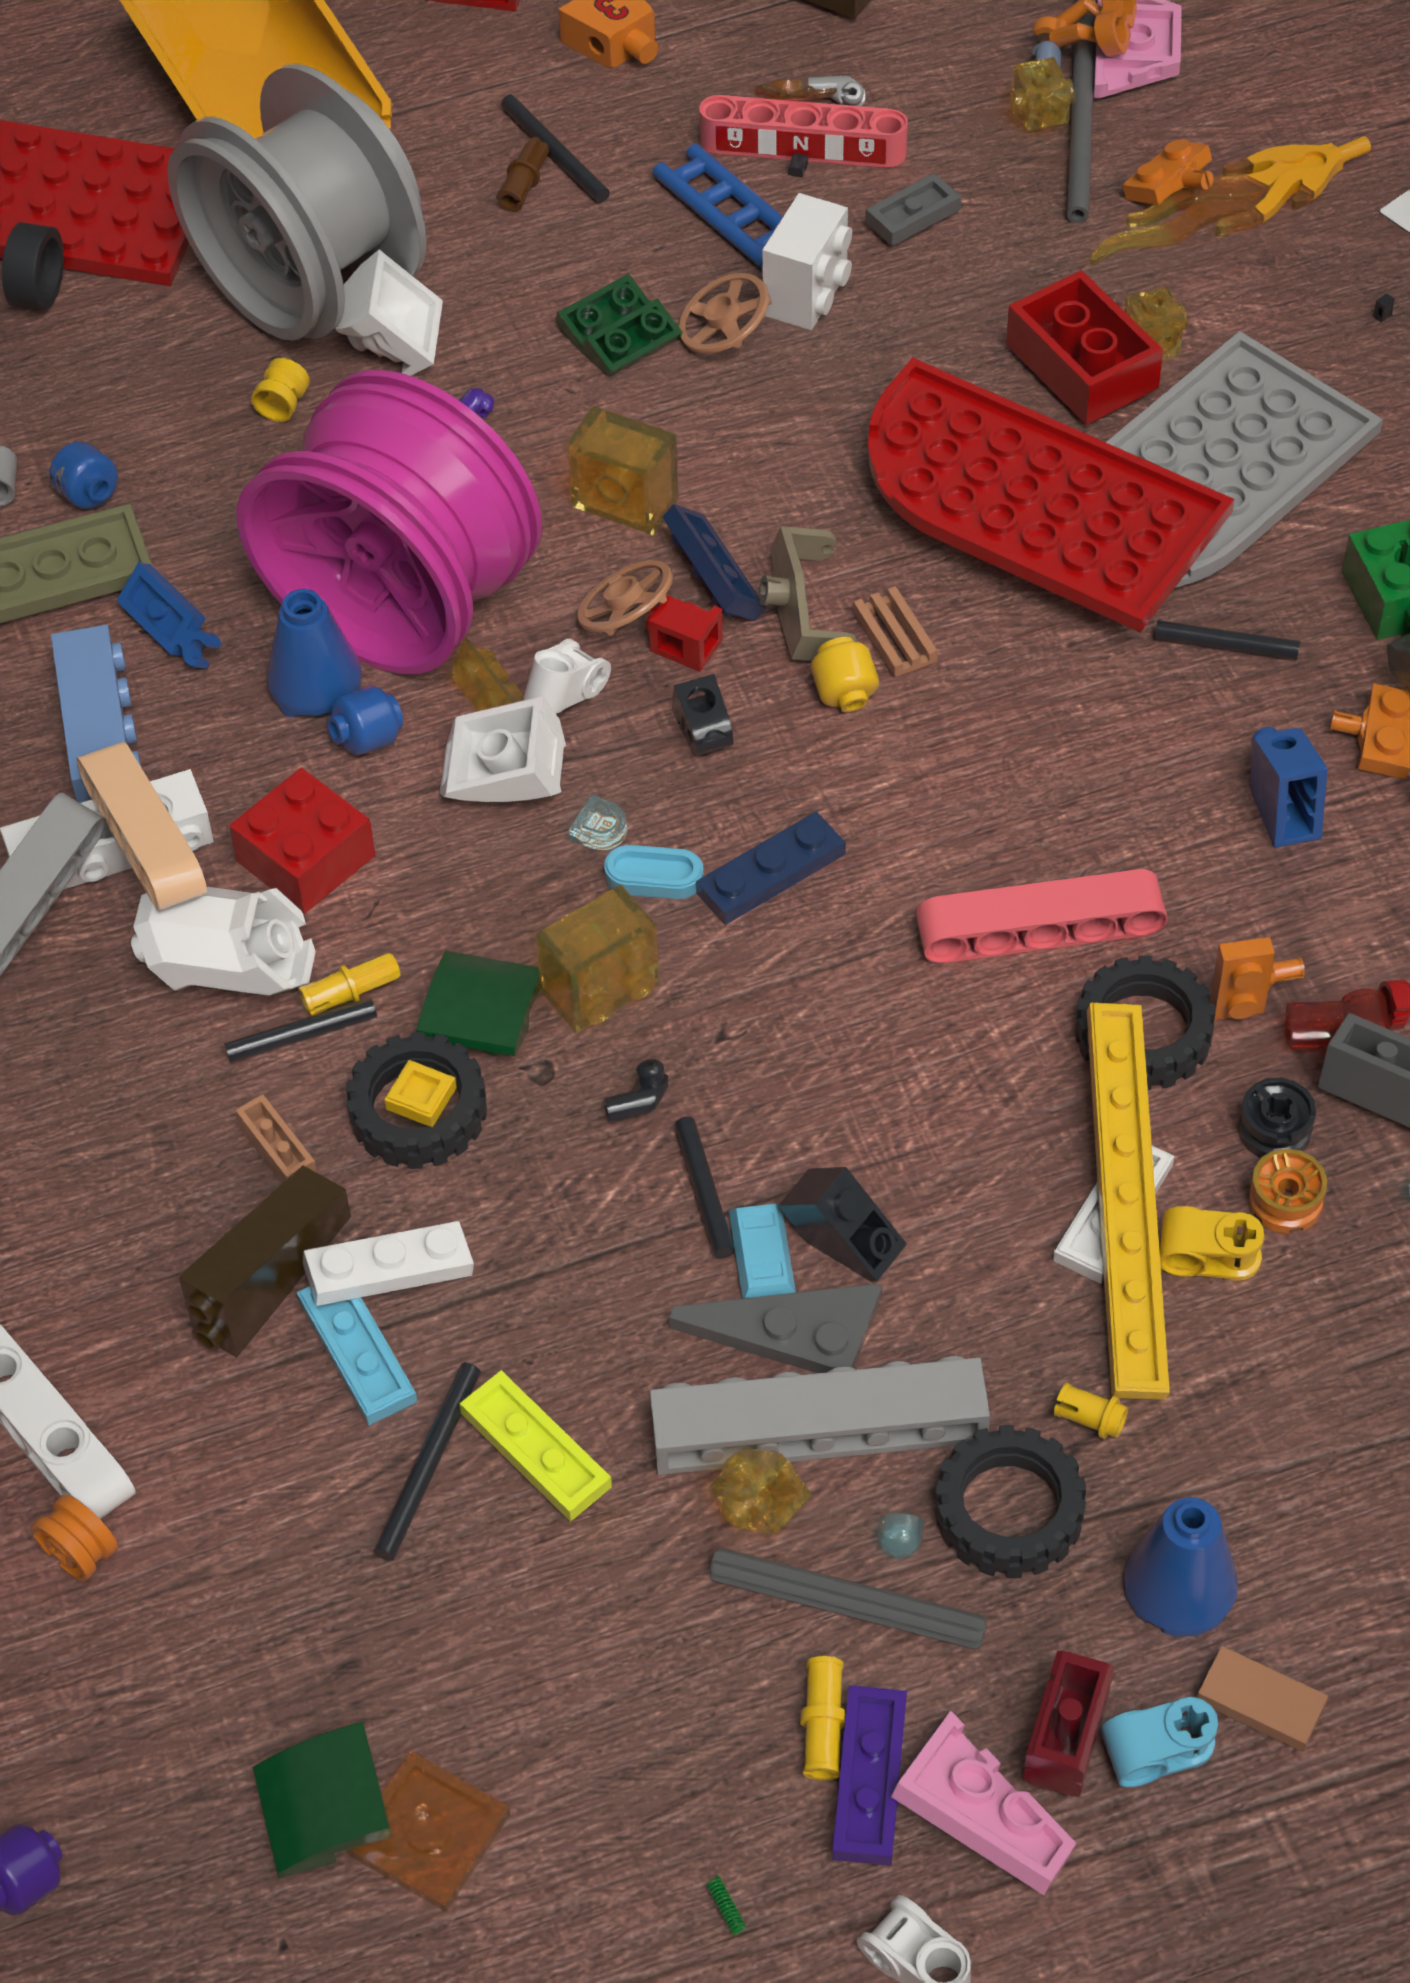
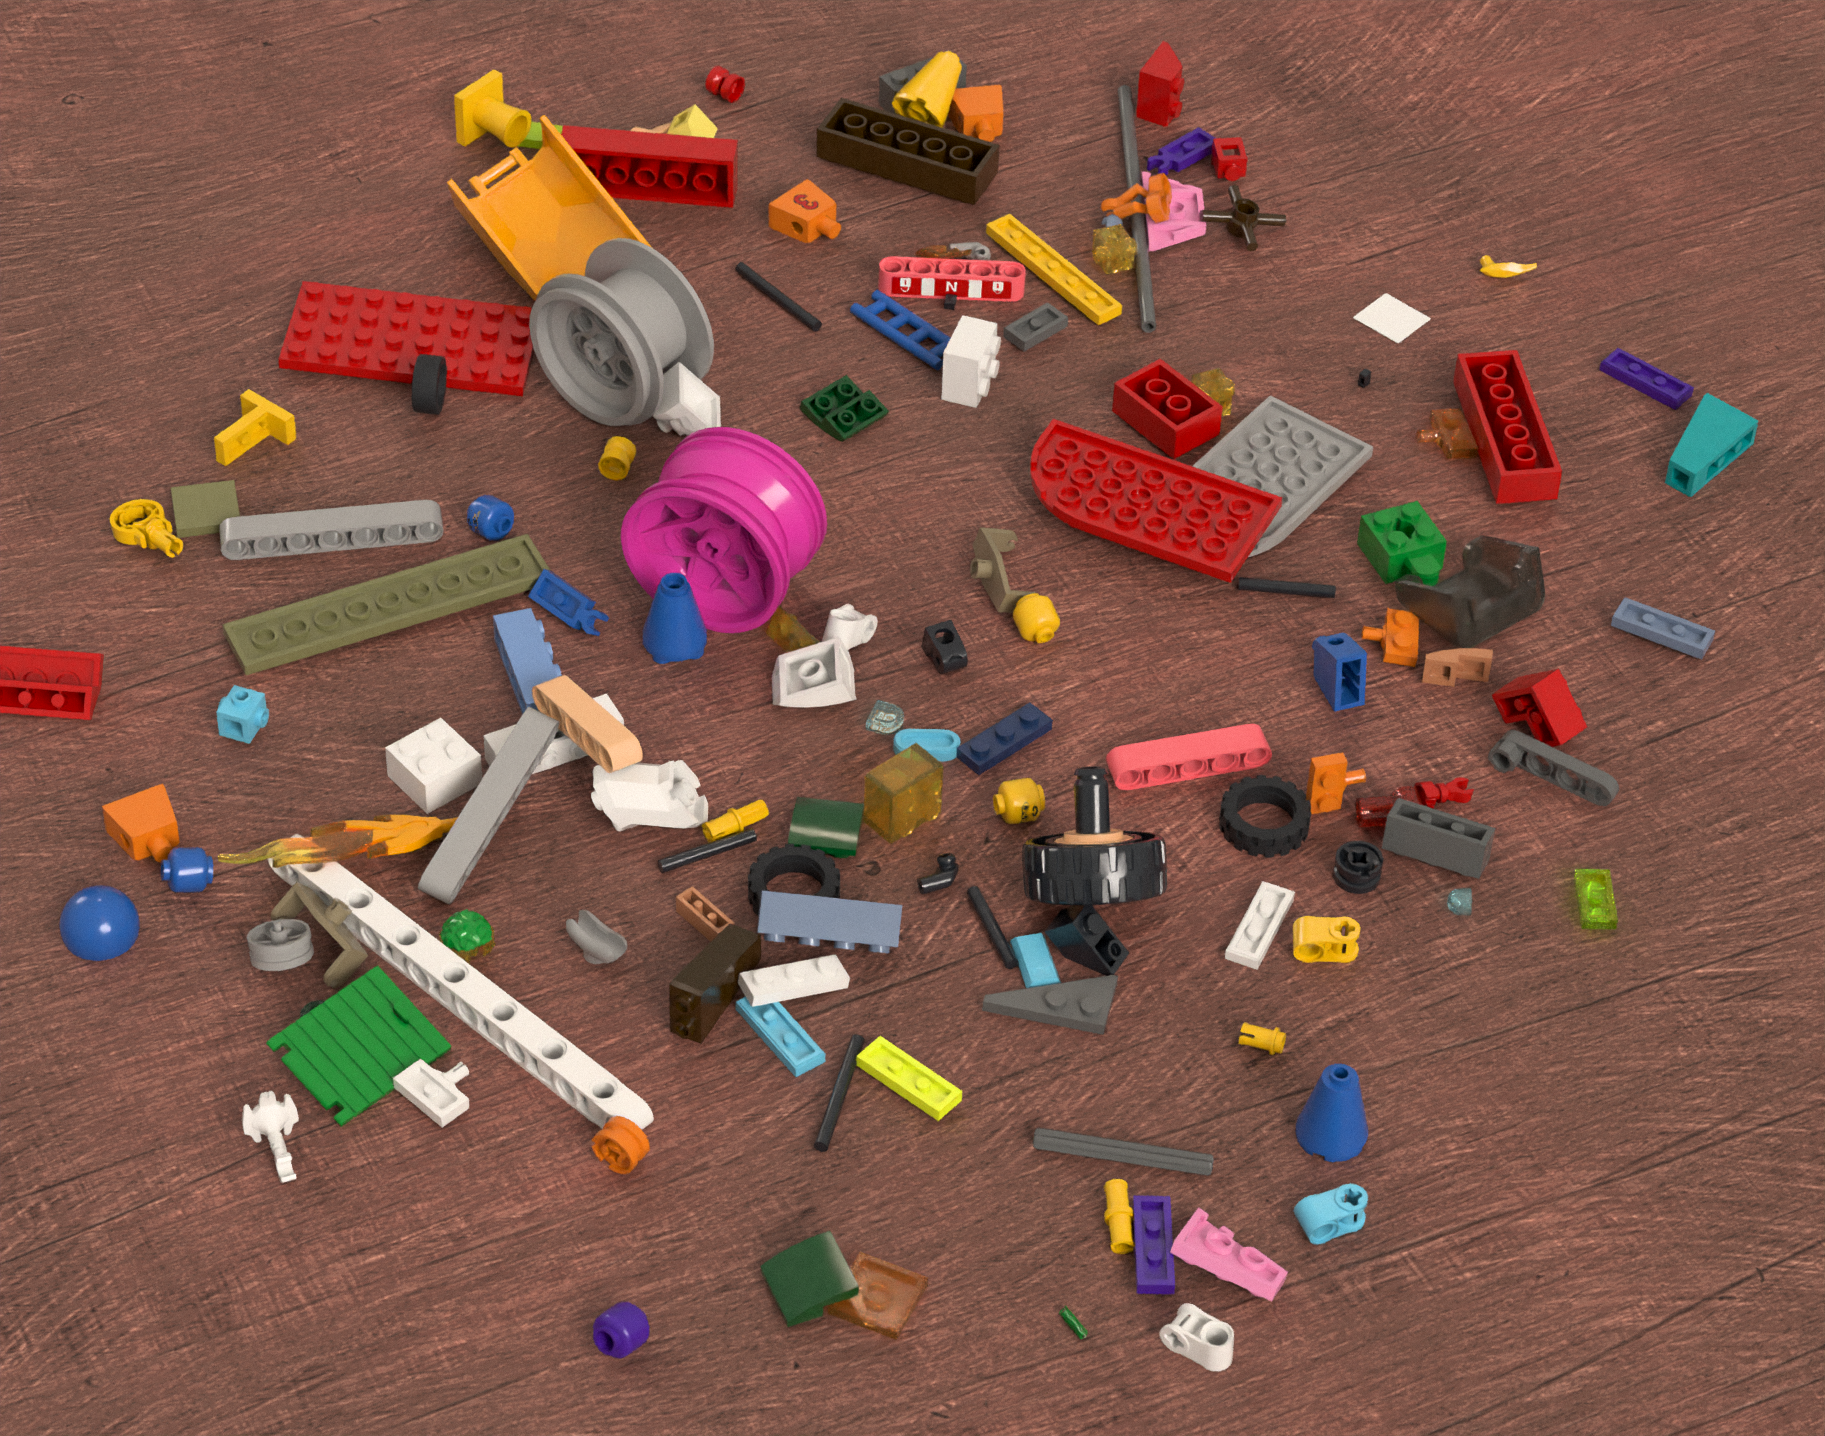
camera: 10 degrees left, 10 degrees down
(105, 1174) = (596, 939): none -> light grey piece
(302, 840) = (689, 731): red brick -> none
(365, 720) = (716, 661): blue head -> none
(420, 1093) = (799, 877): yellow tile -> none
(452, 1168) = (829, 919): none -> sand blue brick
(522, 175) = (759, 314): reddish brown axle -> none
(623, 470) = (867, 497): clear yellow brick -> none
(624, 595) = (879, 575): nougat wheel -> none
(684, 632) = (923, 597): red brick -> none
(713, 563) = (935, 555): dark blue plate -> none
(723, 313) = (917, 397): nougat wheel -> none
(759, 1490) = (1059, 1091): clear yellow brick -> none
(774, 977) = (1019, 800): none -> yellow head
(820, 1413) = (1089, 1050): light grey brick -> none
(864, 1099) = (1094, 860): none -> black wheel
(882, 605) = (1069, 590): nougat tile -> none
(900, 1534) = (1151, 1113): clear light blue hinge -> none
(953, 122) = (1054, 269): none -> yellow plate
(1007, 1449) = (1212, 1118): black tyre -> none
(1068, 1723) = (1274, 1205): dark red brick -> none
(1127, 1203) = (1269, 916): yellow tile -> none
(1170, 171) = (1209, 295): orange plate -> none
(1235, 52) = (1242, 218): none -> dark brown bar
(1245, 195) = (1260, 310): piece -> none
(1263, 1698) = (1394, 1189): nougat tile -> none
(1290, 1171) = (1371, 906): orange wheel -> none

